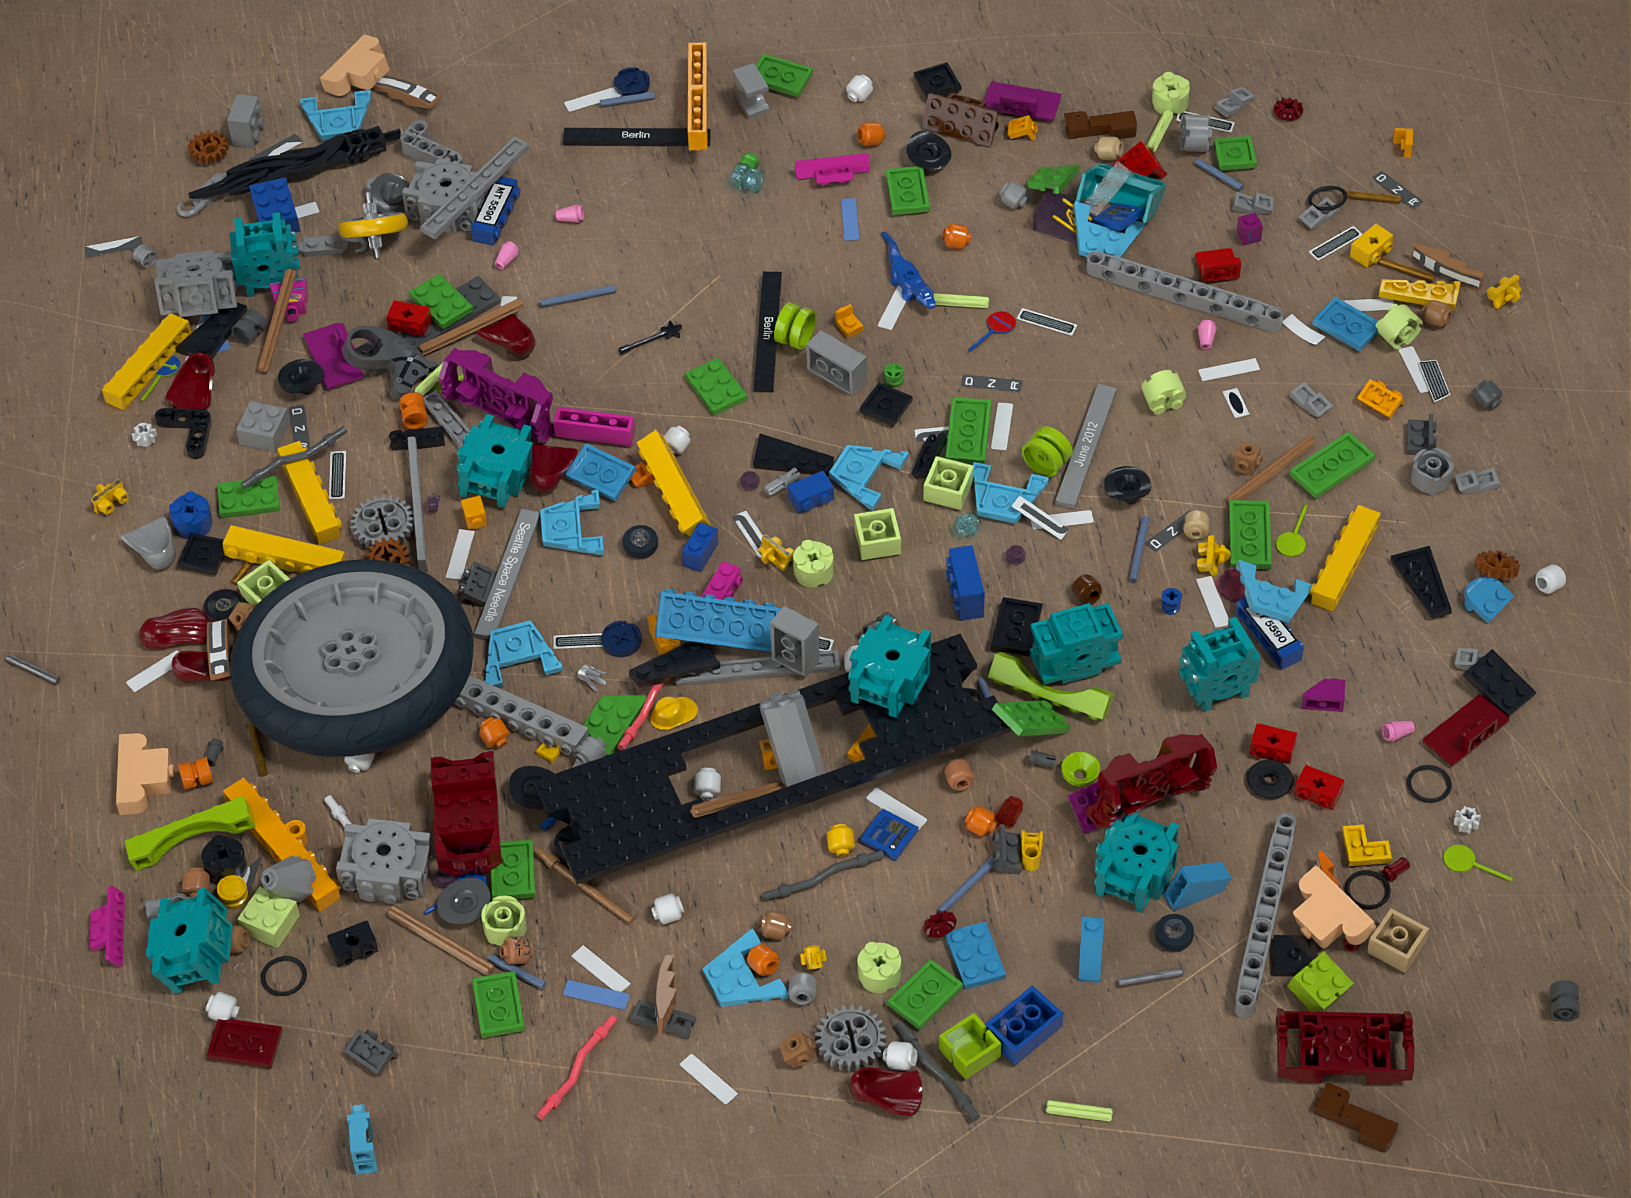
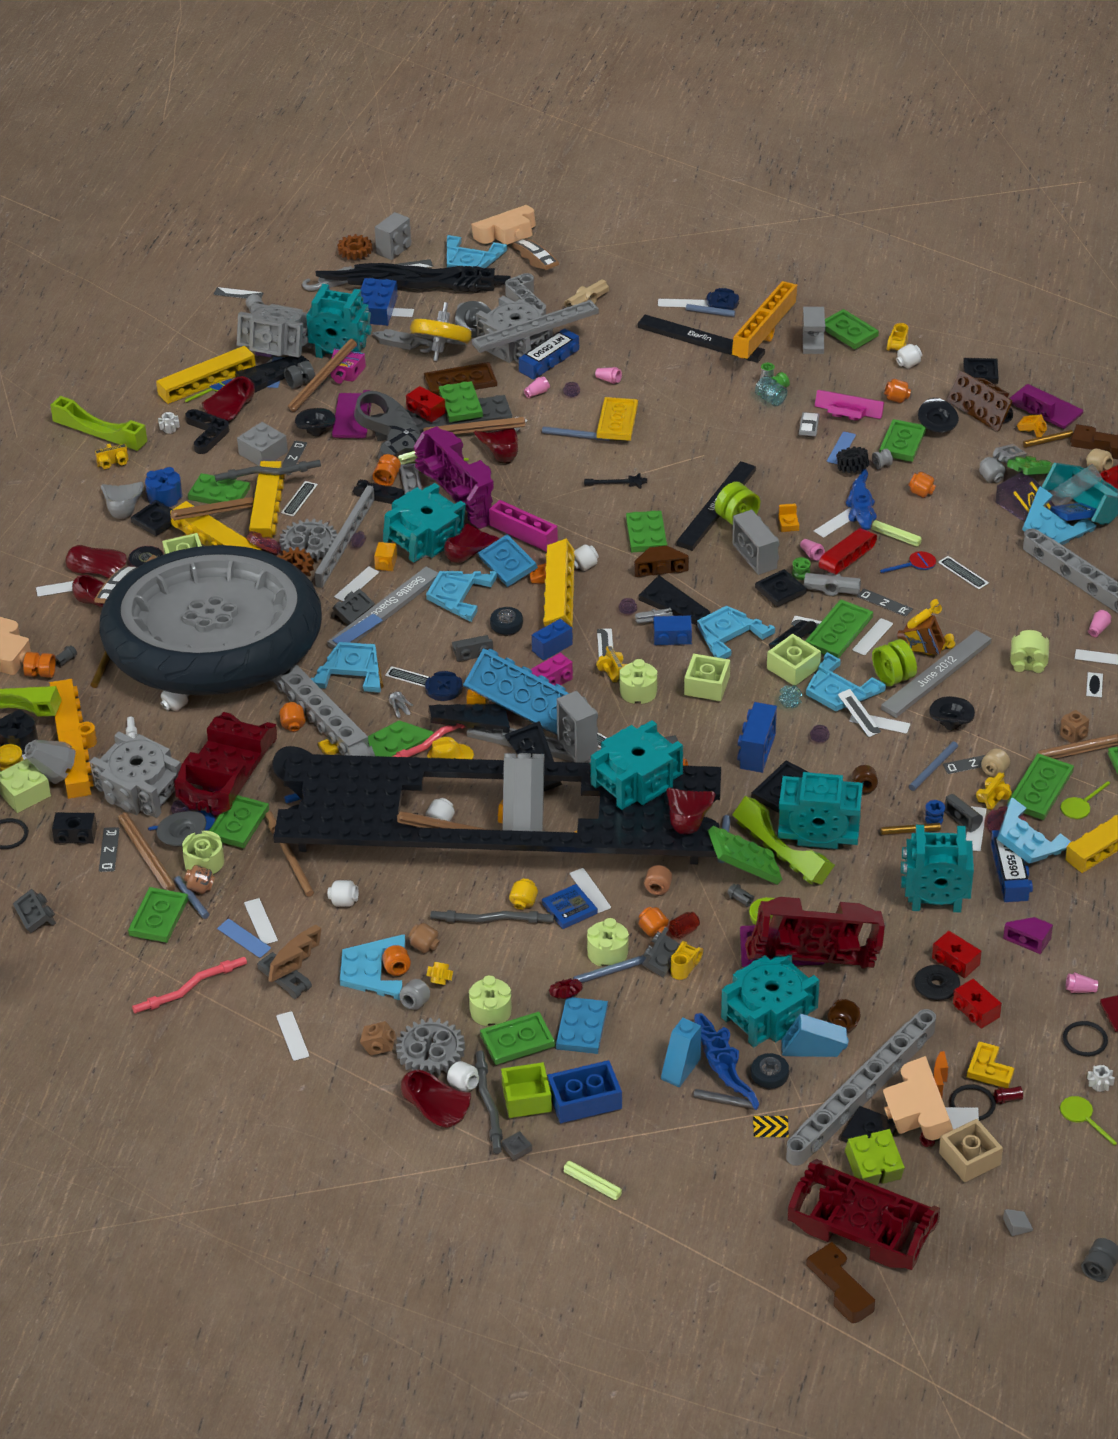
camera: 25 degrees right, 10 degrees down
(35, 463) = (72, 415): none -> lime arch
(266, 524) = (213, 508): none -> medium nougat axle
(340, 543) = (265, 543): none -> clear pink tile
(398, 951) = (109, 849): none -> dark grey sticker
(418, 270) = (480, 375): none -> reddish brown tile
(491, 125) = (591, 293): none -> tan piece
(498, 608) = (358, 629): none -> medium blue sticker
(542, 245) = (571, 389): none -> clear purple plate
(611, 264) = (617, 418): none -> yellow tile
(624, 585) = (471, 647): none -> dark grey bracket
(732, 155) = (767, 370): none -> piece
(754, 416) = (660, 561): none -> reddish brown slope
(754, 676) = (532, 740): none -> black wing
(806, 203) = (809, 424): none -> slope
(837, 69) = (898, 337): none -> yellow piece
(874, 231) = (852, 459): none -> black tyre
(892, 349) = (812, 549): none -> bright pink cone
(900, 219) = (882, 458): none -> light grey wheel
(931, 340) = (847, 551): none -> red beam
(933, 381) = (832, 583): none -> light grey piece
(951, 860) = (607, 942): none -> yellowish green brick
(963, 692) = (688, 808): none -> dark red hair
(991, 1105) = (517, 1145): none -> flat silver plate
(1021, 171) = (1008, 452): none -> light grey hinge
(1044, 138) = (1049, 438): none -> pearl gold bar
(1058, 408) = (924, 632): none -> torso
(1127, 937) = (723, 1057): none -> blue animal
(1155, 625) = (909, 828): none -> pearl gold bar
(1196, 591) = (962, 813): none -> dark grey brick
(1204, 988) = (770, 1126): none -> sticker
(1210, 848) = (845, 1014): none -> reddish brown hair
(1373, 908) = (960, 1116): none -> white sticker
(1471, 993) = (1016, 1222): none -> light grey slope

